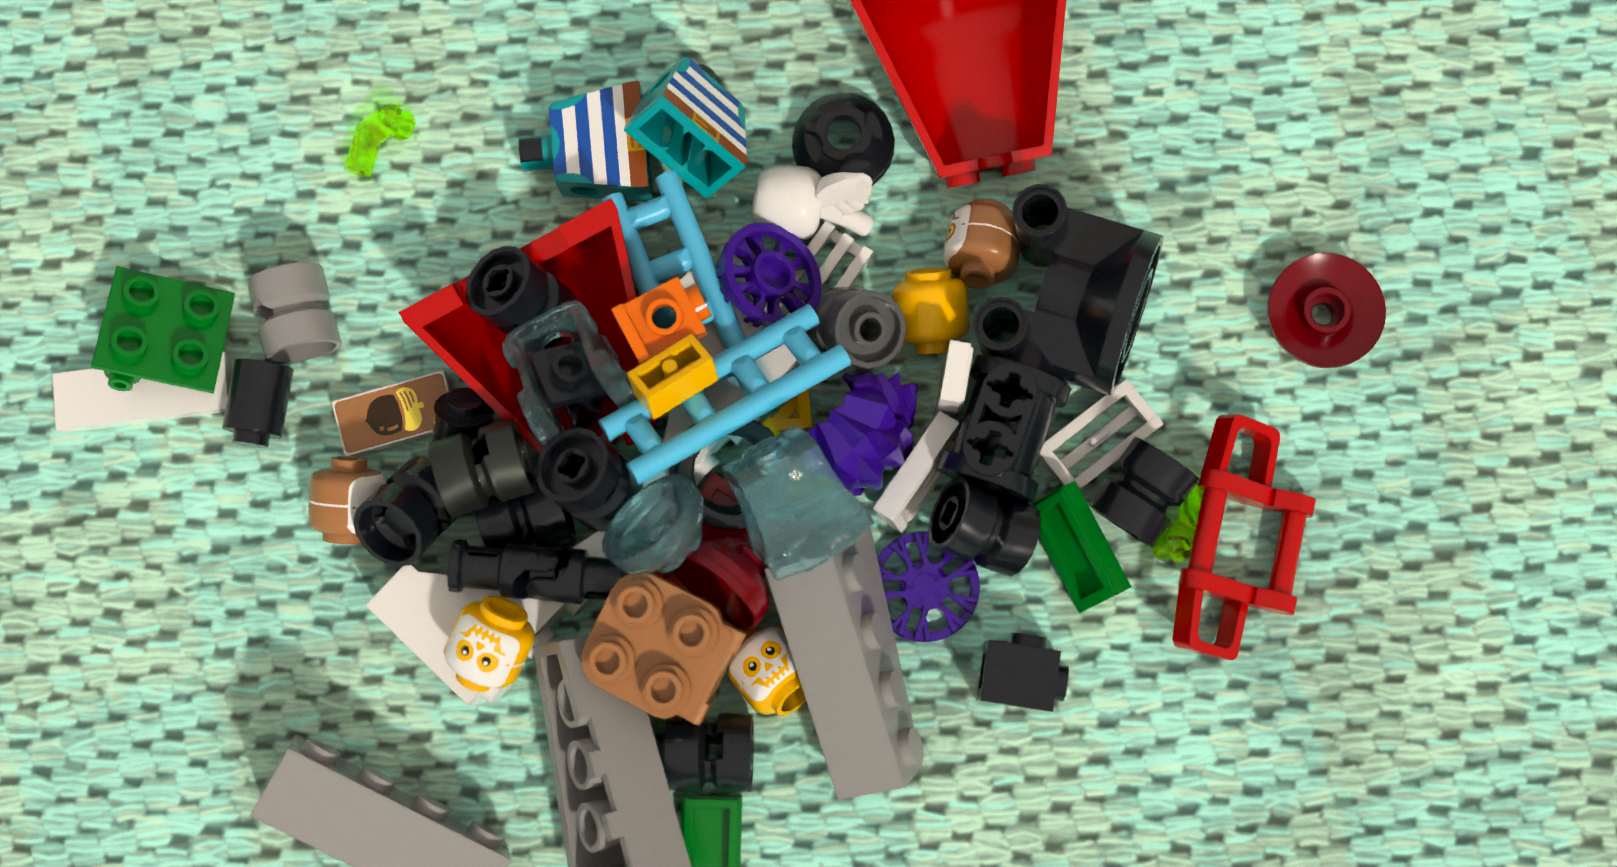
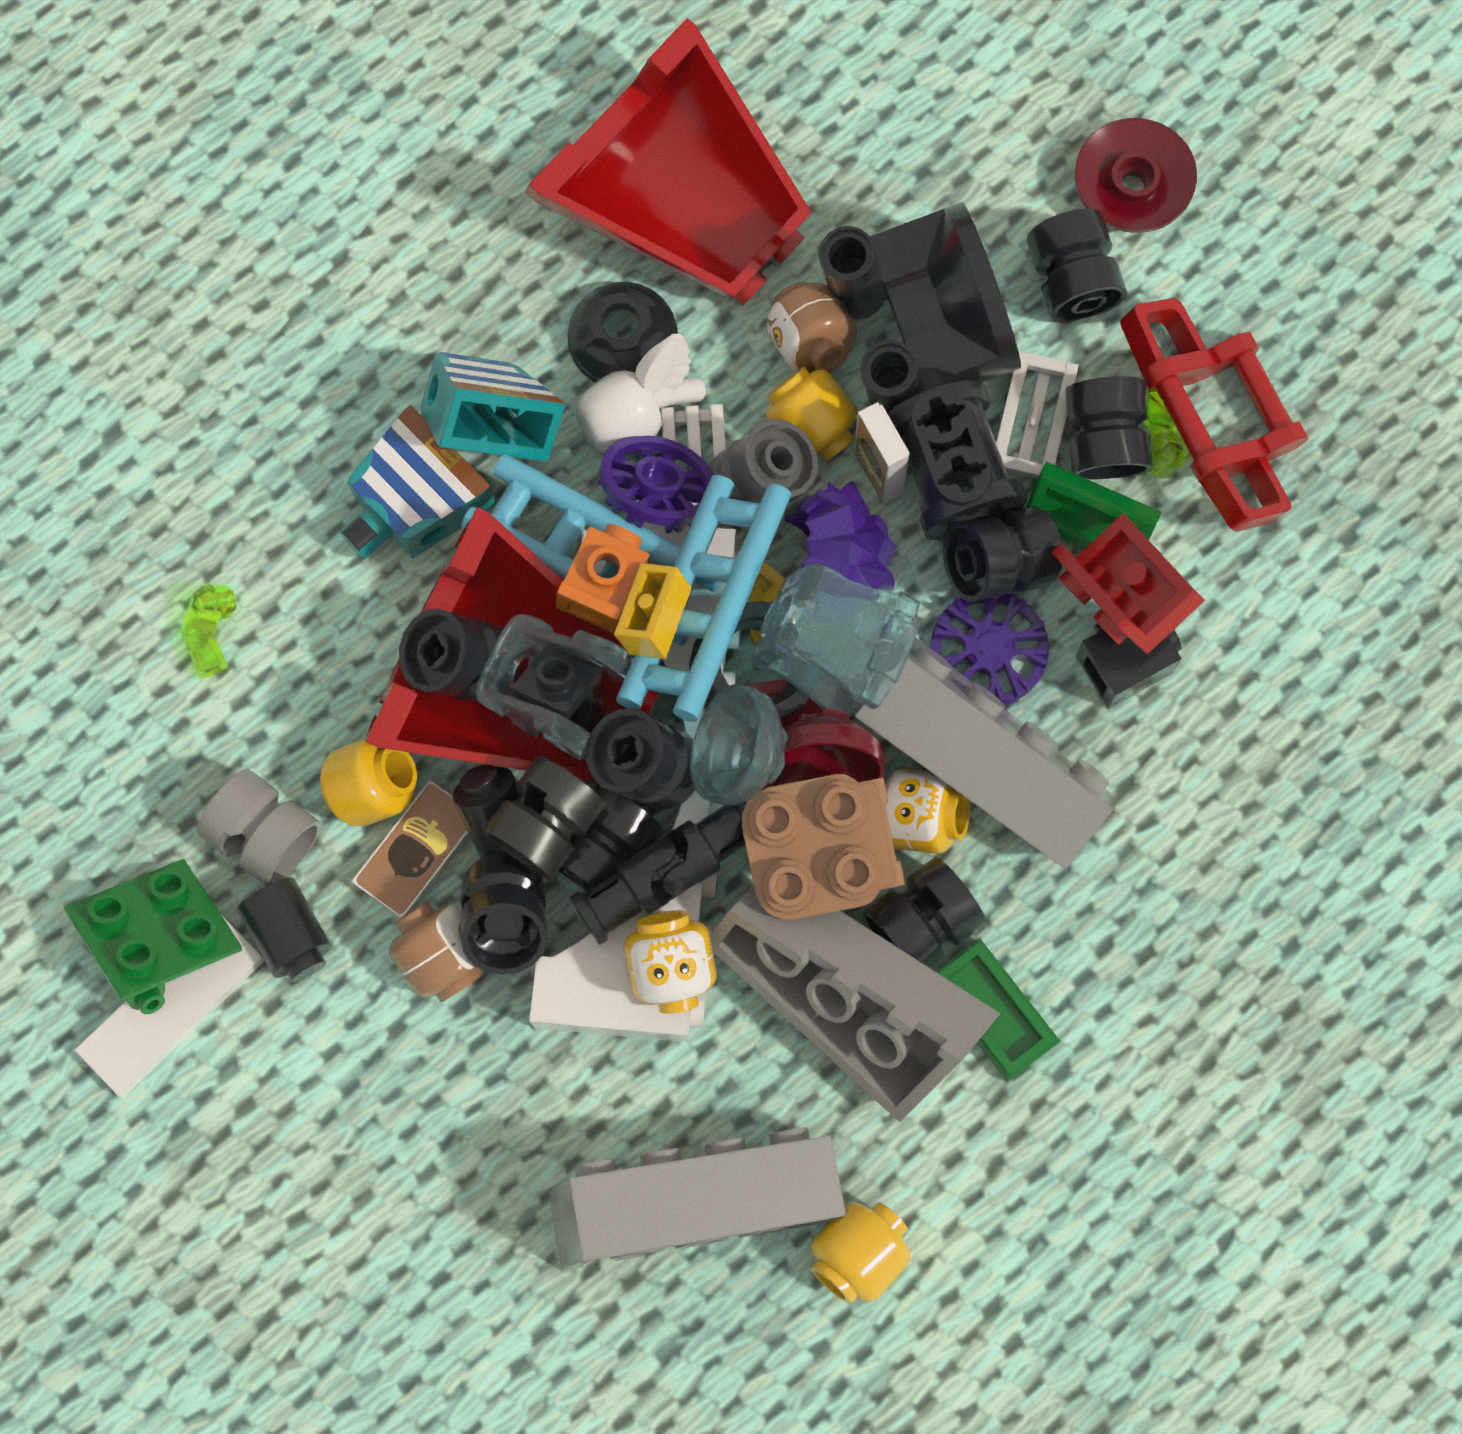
camera: 40 degrees left, 5 degrees down
(387, 343) = (367, 783): none -> yellow head
(917, 474) = (912, 549): white tile -> none
(1053, 627) = (1131, 584): none -> red bracket
(1224, 340) = (1074, 257): none -> black wheel

